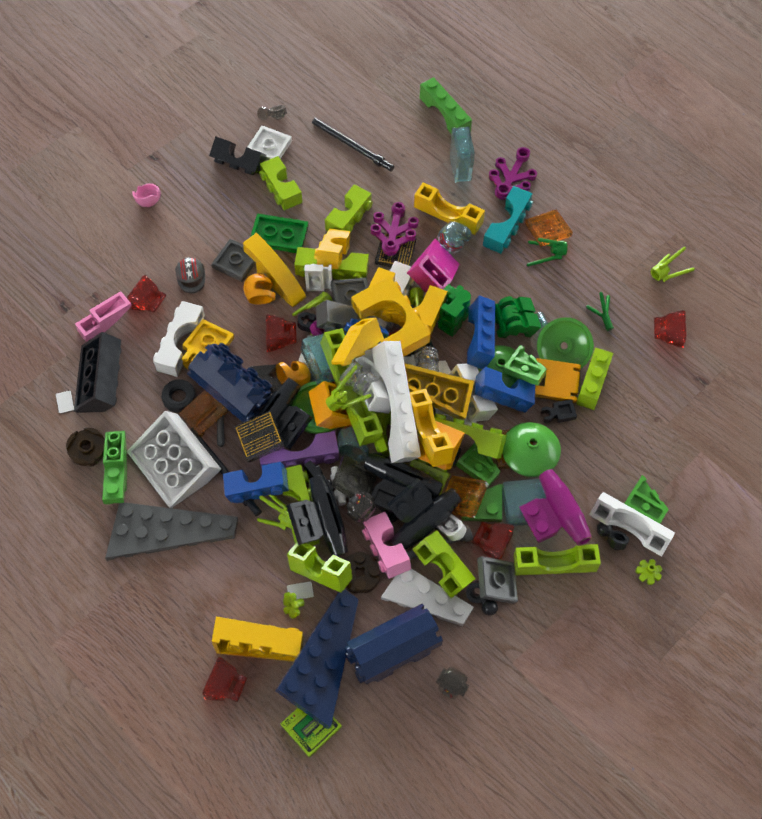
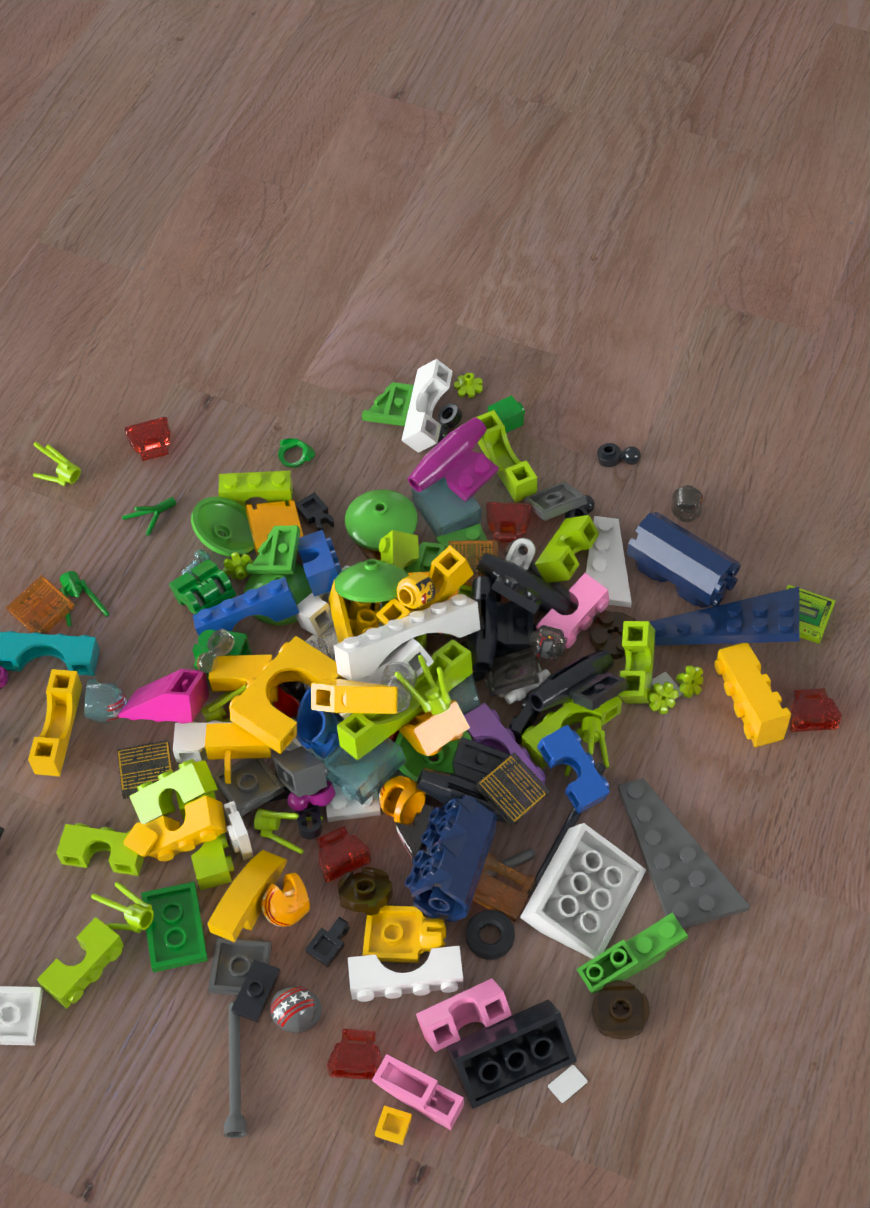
camera: 110 degrees left, 5 degrees down
(94, 298) = (393, 1125): none -> yellow plate
(134, 369) = (480, 1003): none -> bright pink arch
(144, 227) = (235, 1125): none -> dark grey piece
(147, 195) = (174, 1147): bright pink hair -> none
(212, 258) = (256, 991): none -> black plate
(222, 305) = (327, 944): none -> black plate
(224, 150) = (57, 1020): black arch -> none
(233, 336) = (353, 893): none -> dark brown plate
(289, 577) = (662, 697): none -> lime plant
(292, 211) = (138, 915): none -> lime plant
(337, 224) = (141, 839): none -> yellow piece
(362, 248) = (190, 781): none -> arch
(362, 281) = (227, 766): none -> yellow piece
(390, 245) = (115, 778): magenta plant -> none
(428, 415) = (415, 590): none -> yellow head
(448, 402) = (370, 581): none -> bright green dish
(449, 294) = (219, 644): none -> clear smoke plate
(522, 664) = (610, 455): none -> black plate
(529, 345) = (237, 566): none -> lime plant
(602, 583) = (509, 412): none -> green brick
(622, 429) = (307, 454): none -> green piece

